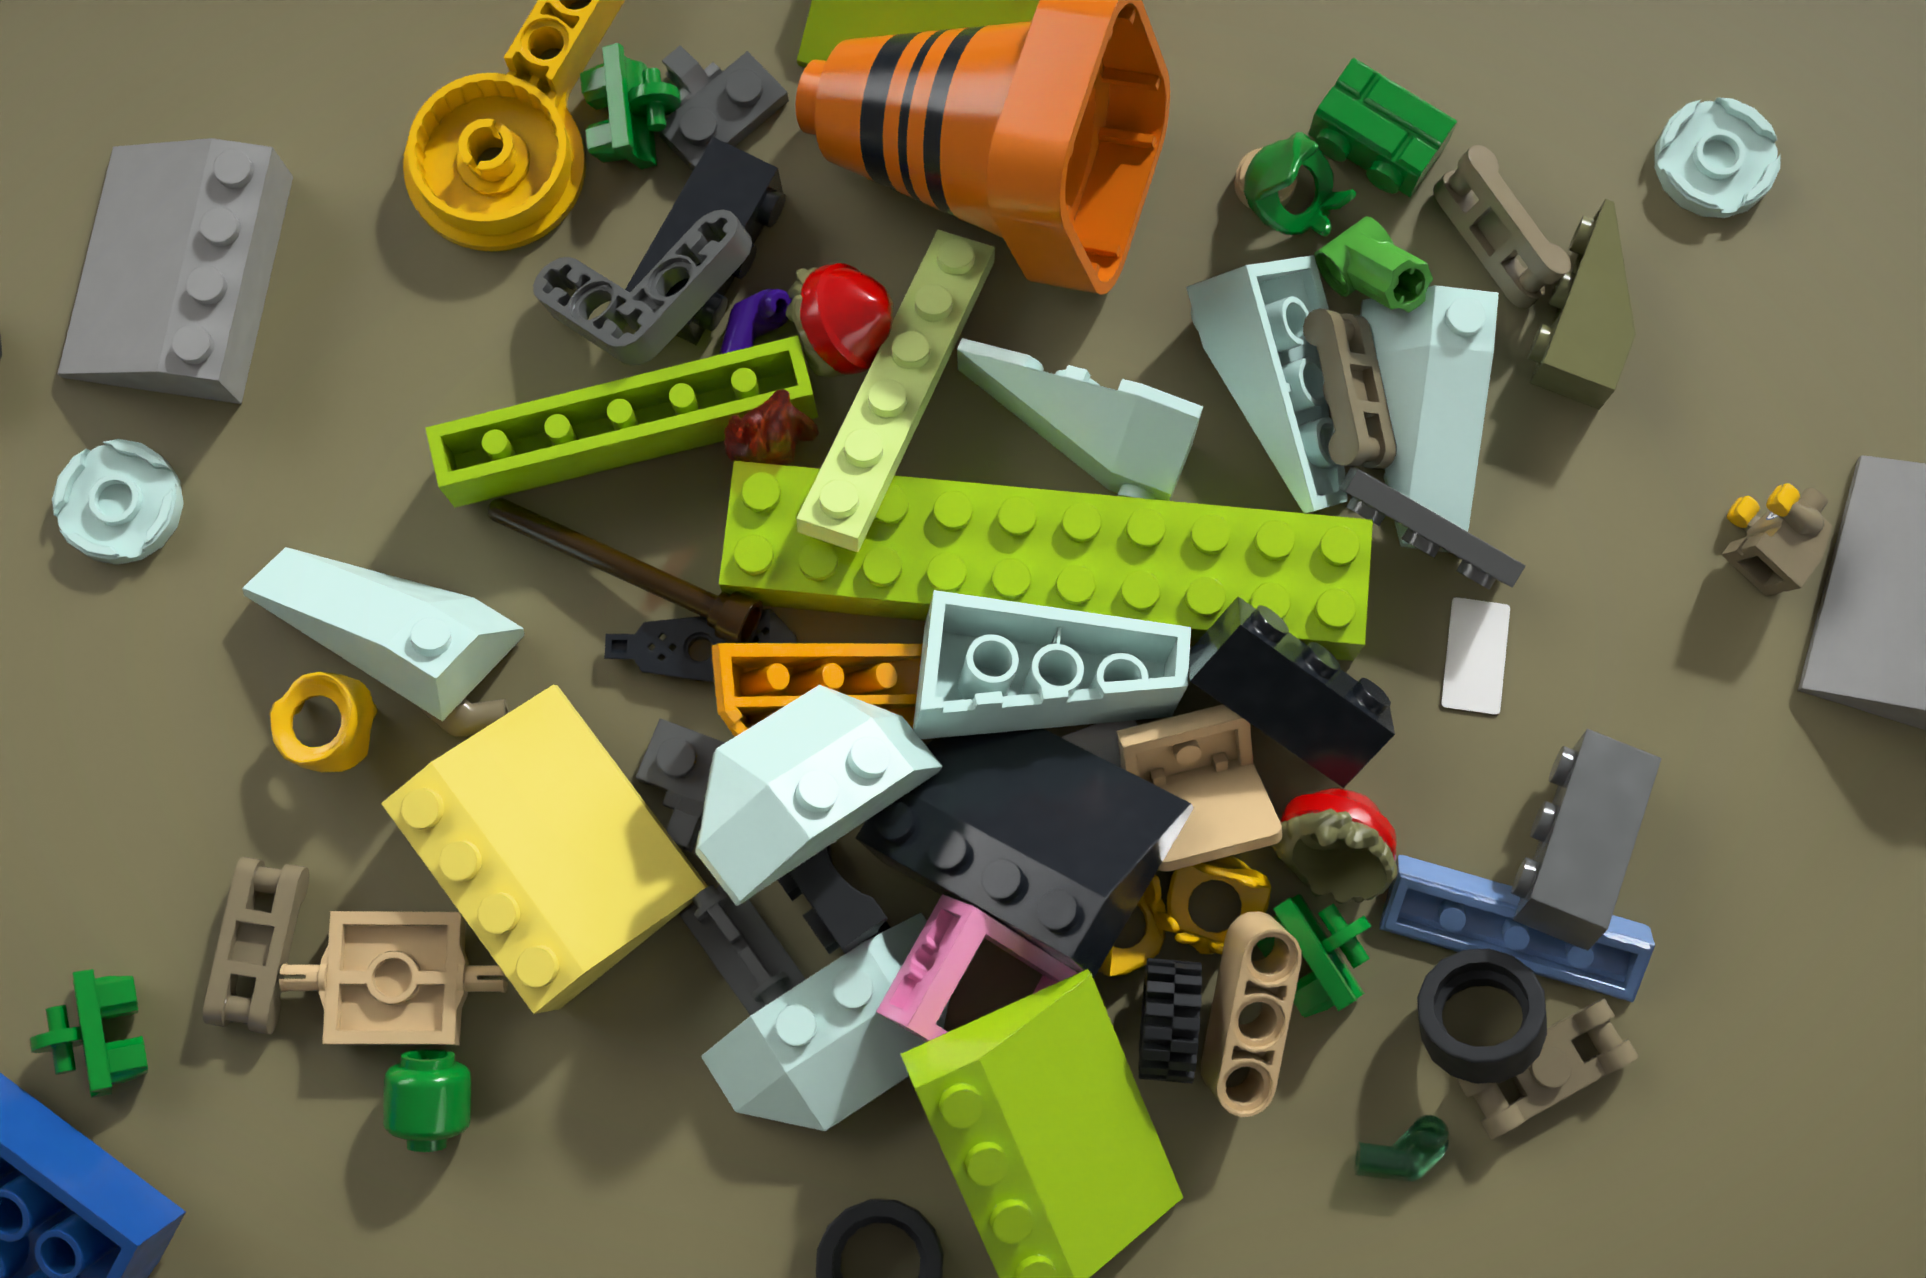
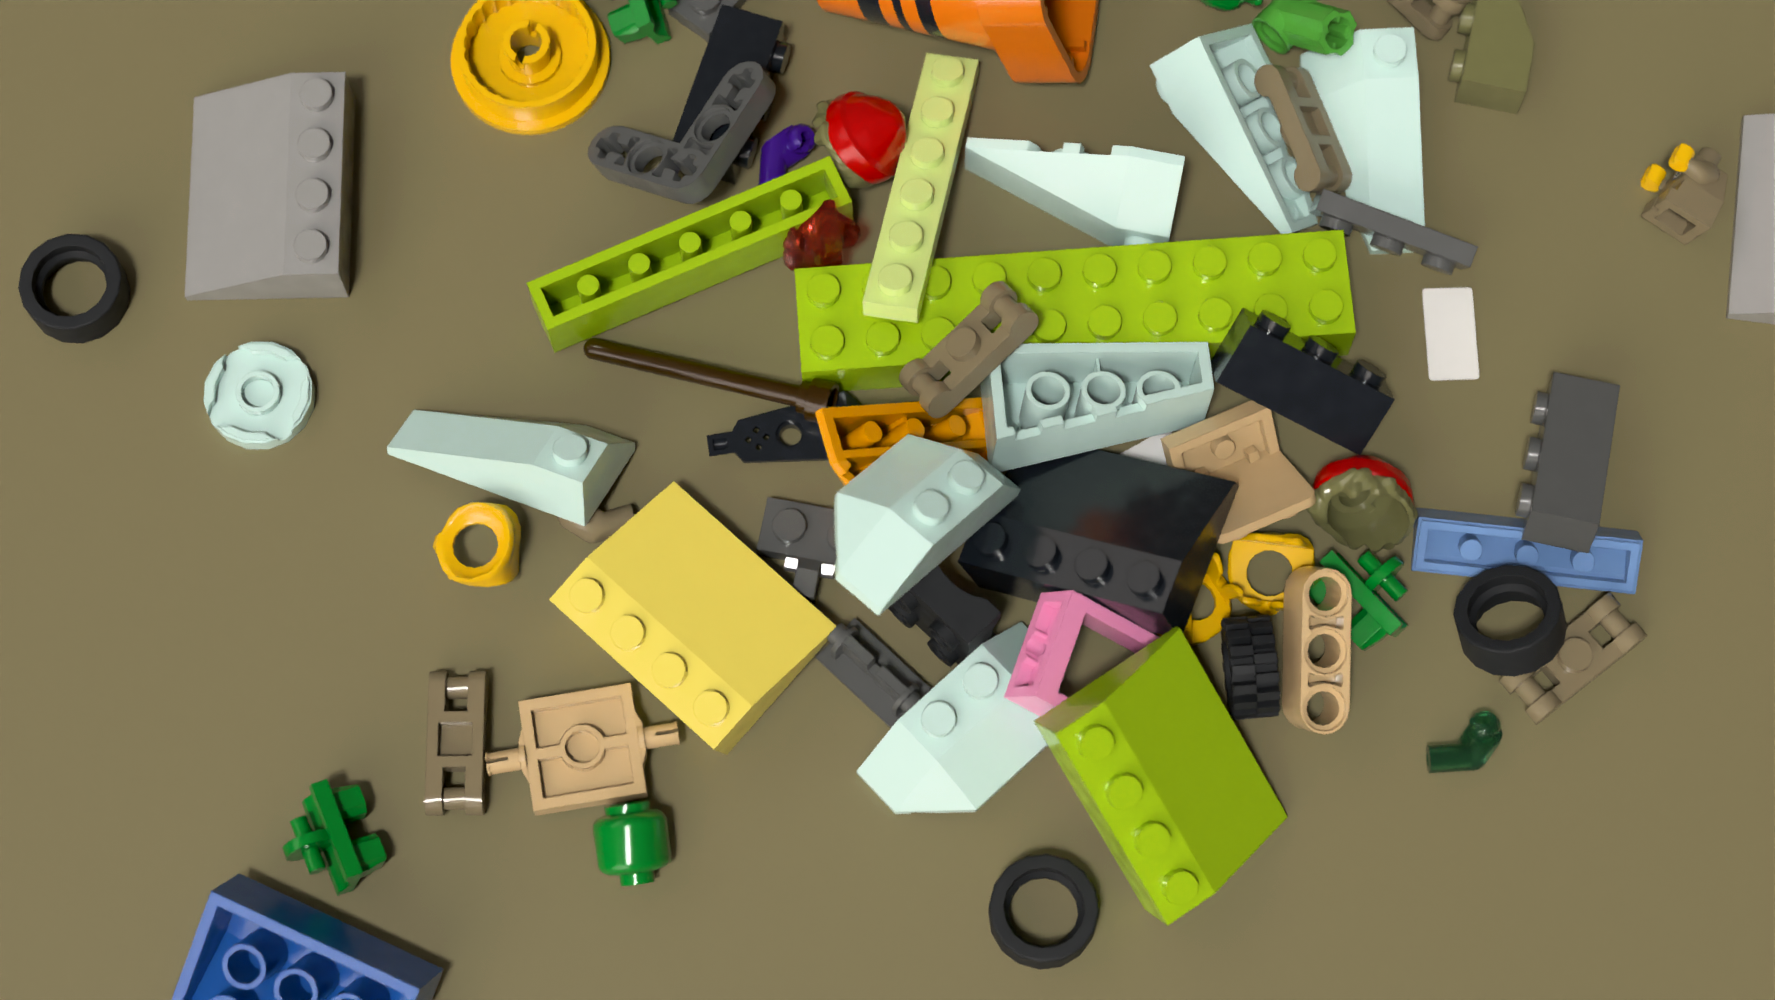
camera: 10 degrees left, 5 degrees down
(911, 596) = (970, 351): none -> dark tan plate

